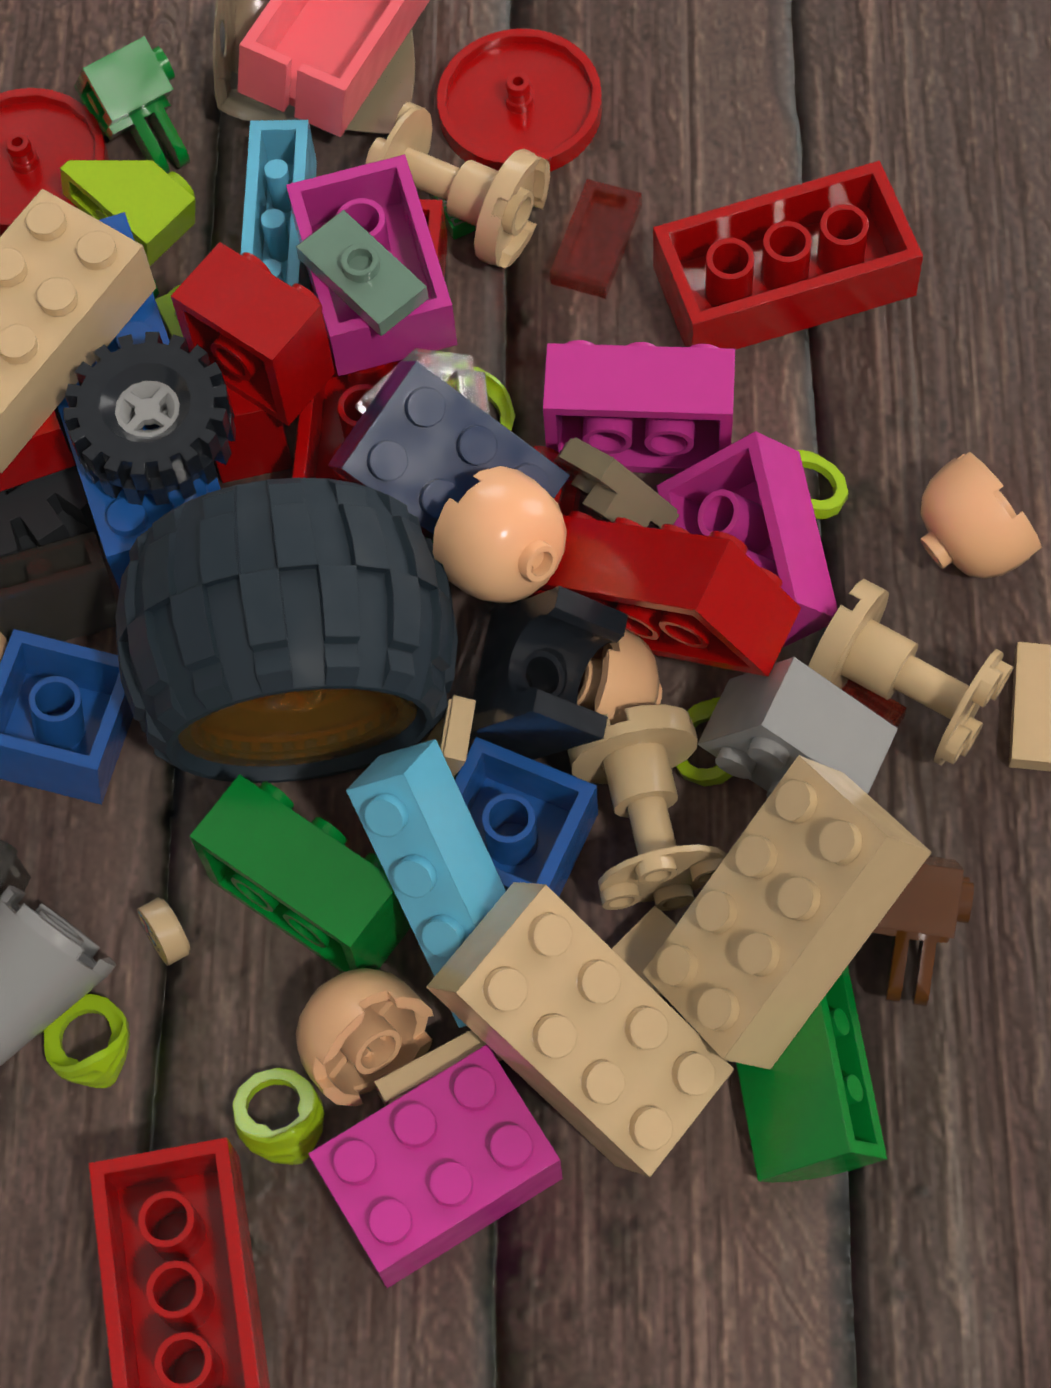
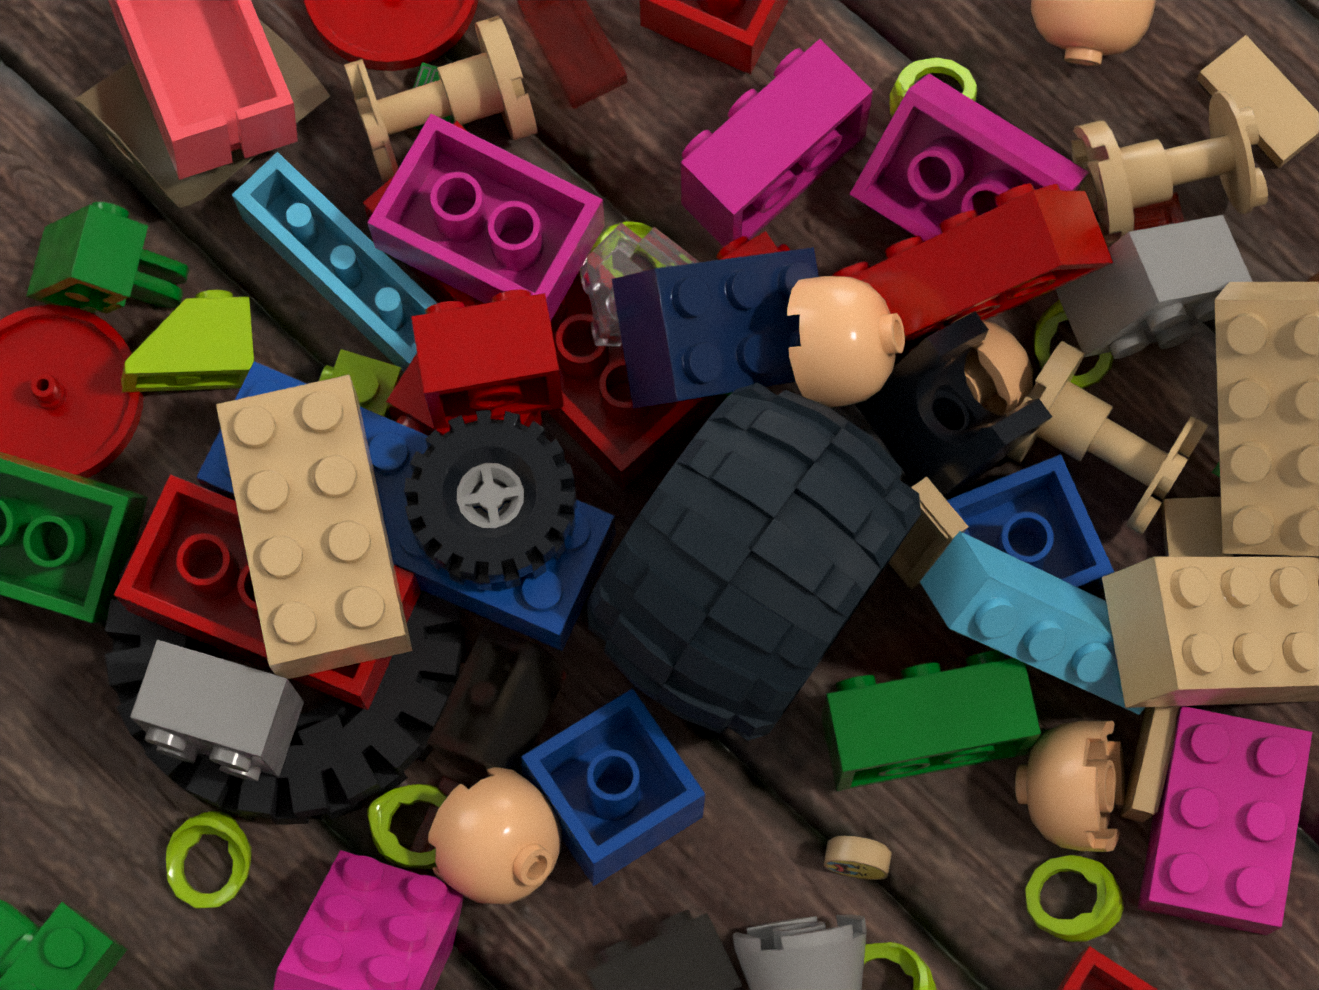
camera: 50 degrees left, 10 degrees up
(362, 272) = (514, 237): sand green plate -> none
(612, 488) = (859, 227): dark tan plate -> none

